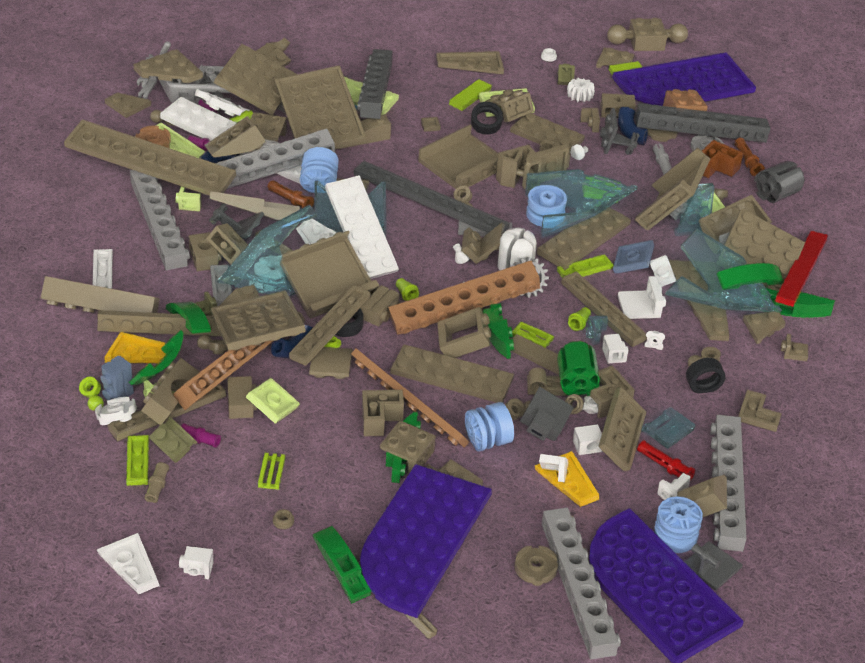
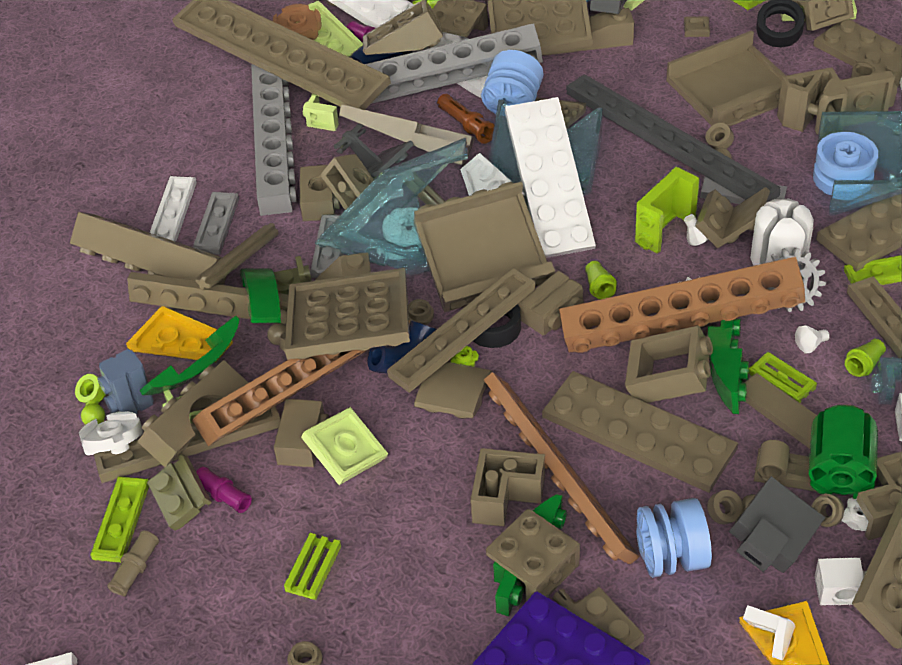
camera: 20 degrees right, 5 degrees up
(137, 275) = (216, 222): none -> light grey tile
(165, 295) = (236, 256): none -> dark tan axle
(442, 235) = (671, 198): none -> lime panel
(544, 311) = (809, 338): none -> white rock

